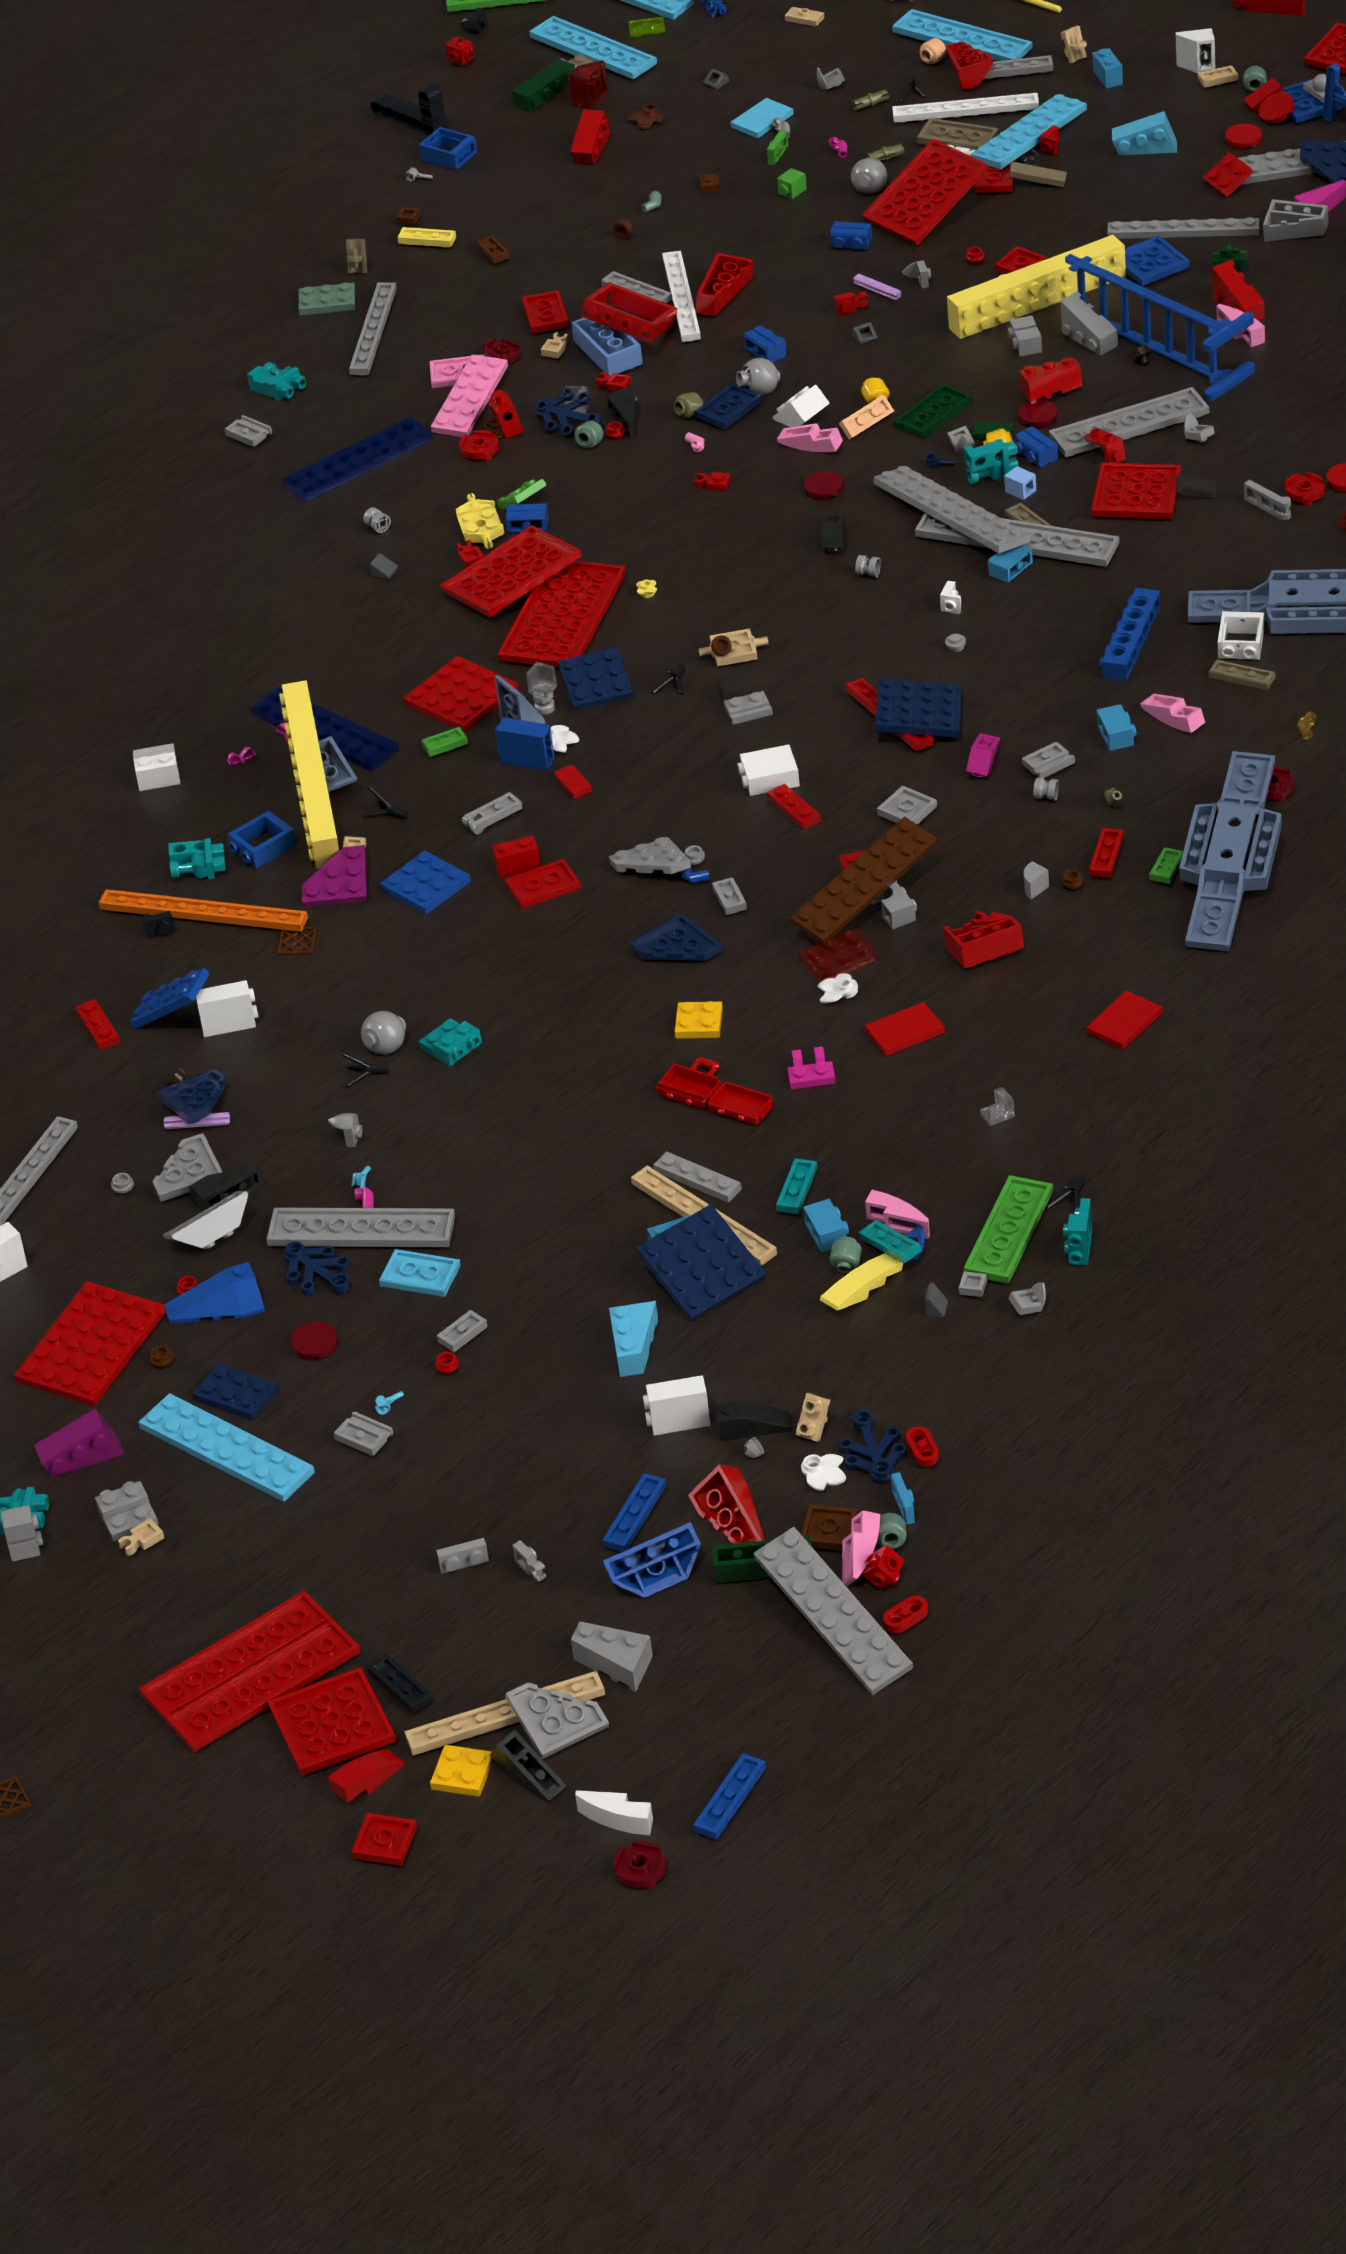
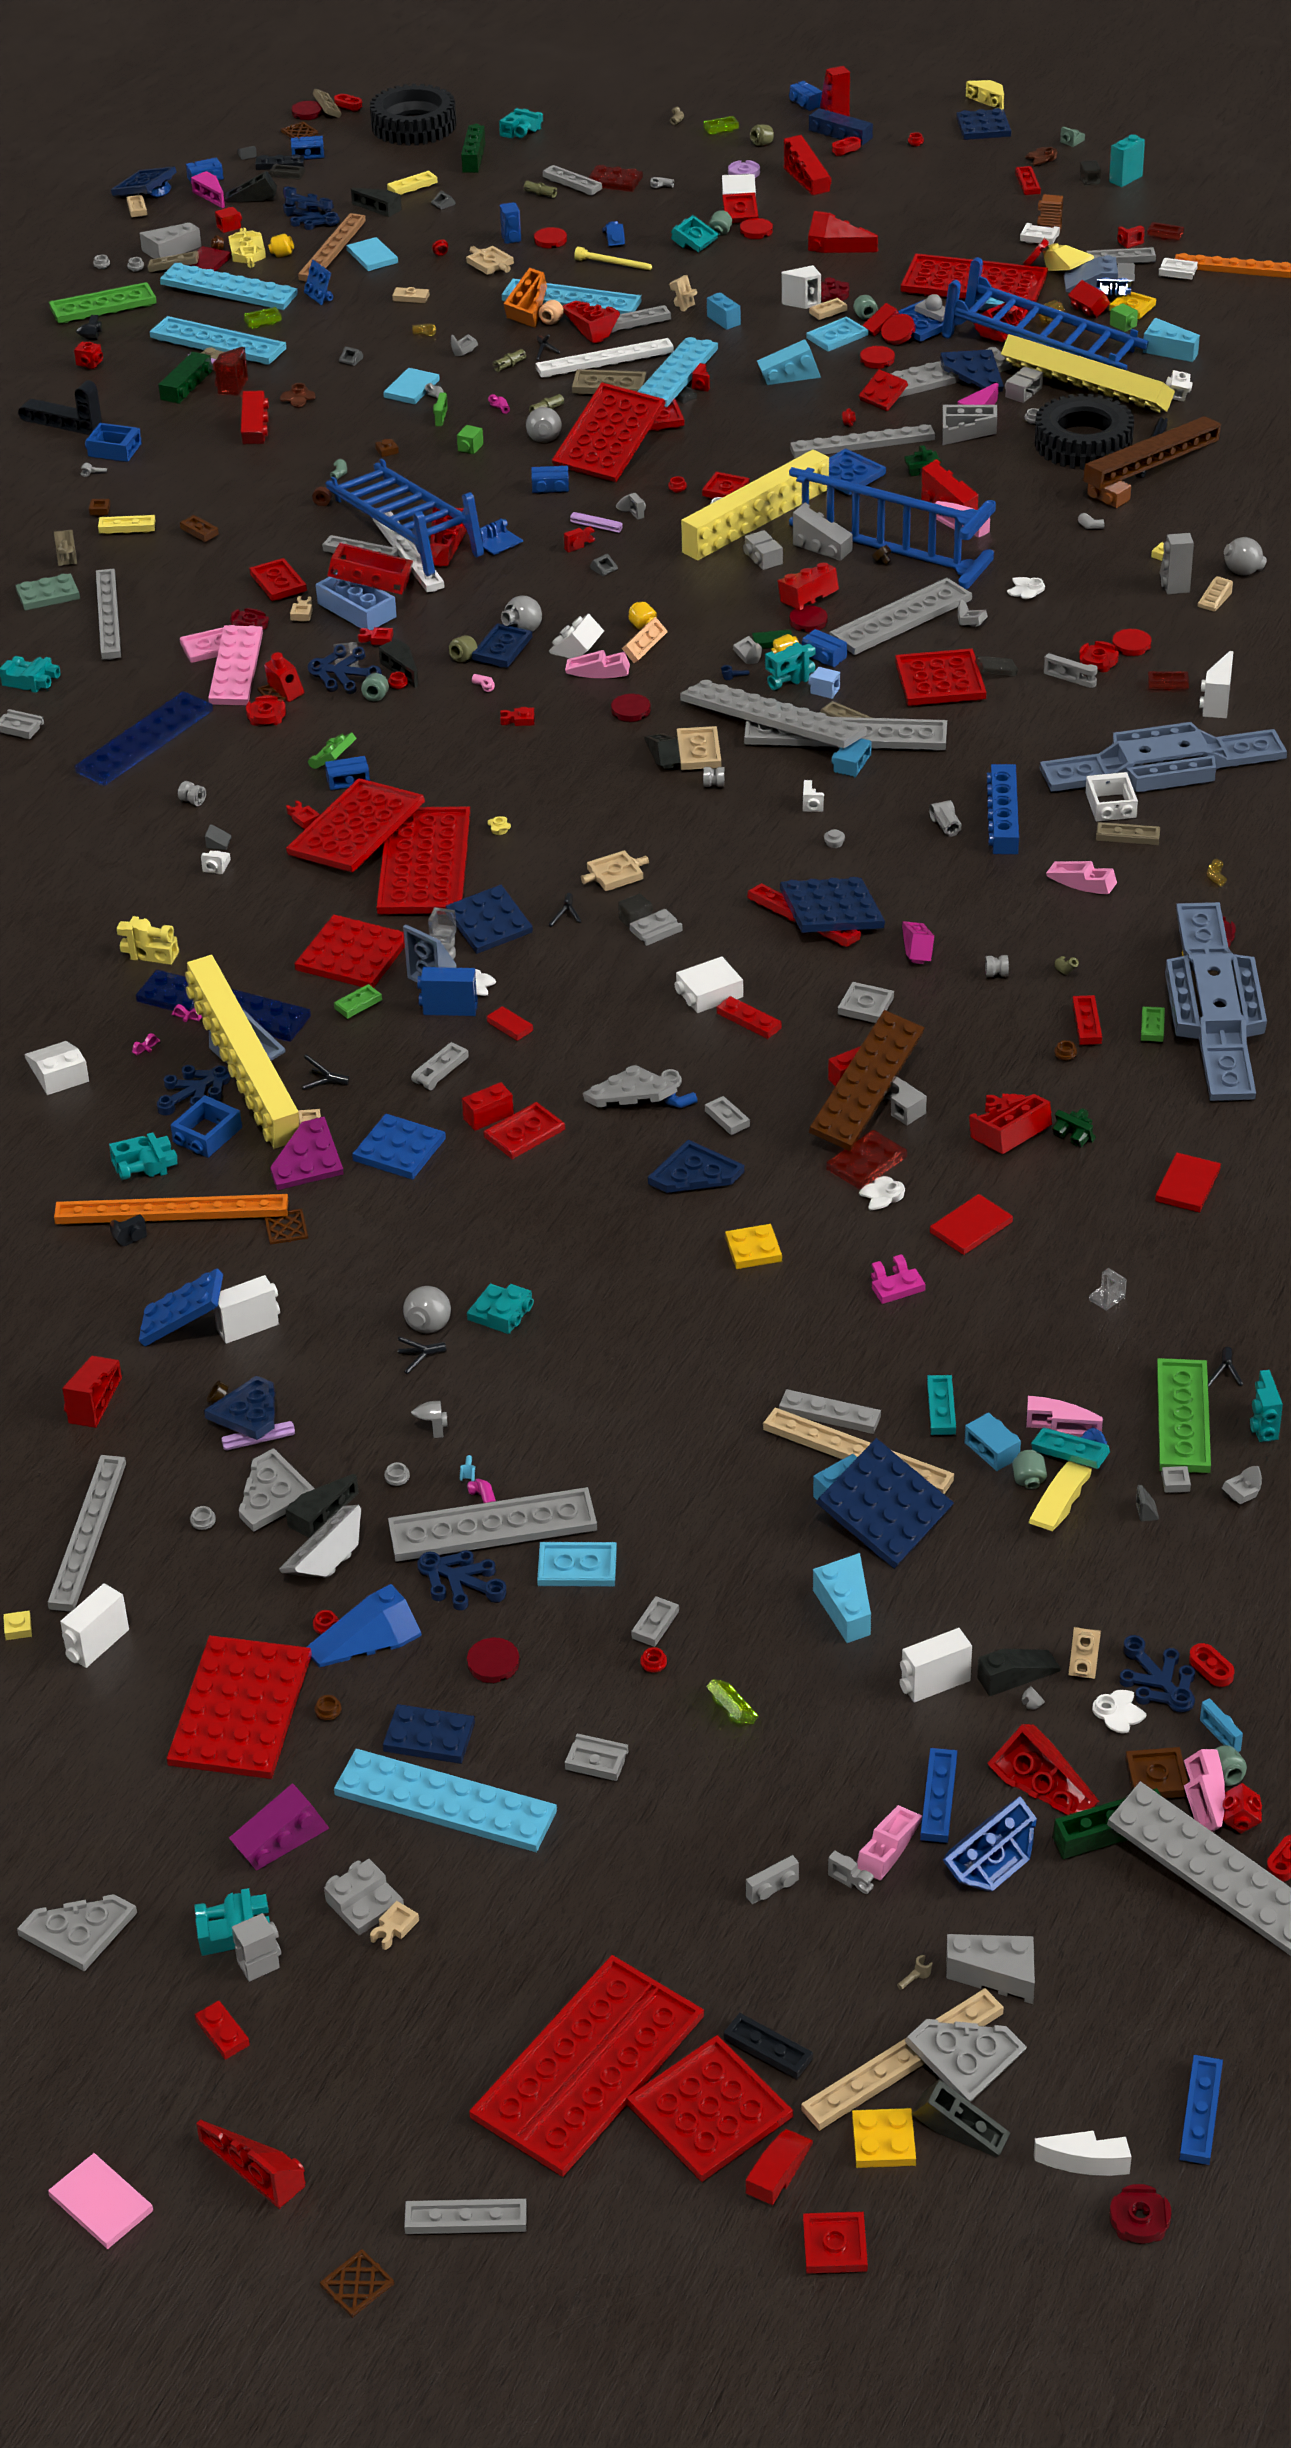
camera: 20 degrees left, 0 degrees up
(70, 1059) = (91, 1390): none -> red wedge
(97, 1024) = (100, 1344): red plate -> none
(104, 1766) = (465, 2216): none -> light grey plate
(278, 660) = (143, 945): none -> light yellow hips
(289, 795) = (217, 1076): none -> dark blue plant
(299, 1172) = (397, 1474): none -> light grey plate
(372, 590) = (215, 861): none -> white bracket
(383, 1403) = (603, 1718): medium azure hand -> none
(477, 514) = (299, 781): light yellow plate -> none
(496, 1407) = (726, 1696): none -> clear neon green plate
(555, 1649) = (919, 1971): none -> dark tan hand
(572, 1543) = (888, 1842): none -> bright pink slope
(678, 276) = (420, 532): none -> blue piece
(705, 1090) = (792, 1317): red piece -> none
(721, 645) = (607, 869): reddish brown plate -> none
(765, 344) = (512, 584): blue brick -> none
(772, 292) = (497, 538): none -> blue hinge
(803, 56) = (427, 329): none -> clear yellow arm
(868, 534) = (698, 748): none -> tan plate
(911, 33) = (527, 298): none -> orange wedge
(933, 411) = (705, 628): dark green tile -> none
(1035, 879) = (1030, 1055): light grey brick -> none
(1038, 174) = (703, 407): dark tan tile -> none
(1044, 951) = (1076, 1123): none -> dark green hips
(1048, 760) = (983, 938): light grey plate -> none
(1070, 634) = (945, 816): none -> light grey piece
(1111, 444) = (900, 637): red bracket -> none
(1116, 727) = (1034, 898): dark azure brick -> none
(1179, 201) = (848, 417): none -> red plate
(1215, 105) = (837, 334): none -> medium azure tile
(1233, 55) = (834, 289): none -> dark red plate
(1270, 407) = (1026, 587): none -> white plate

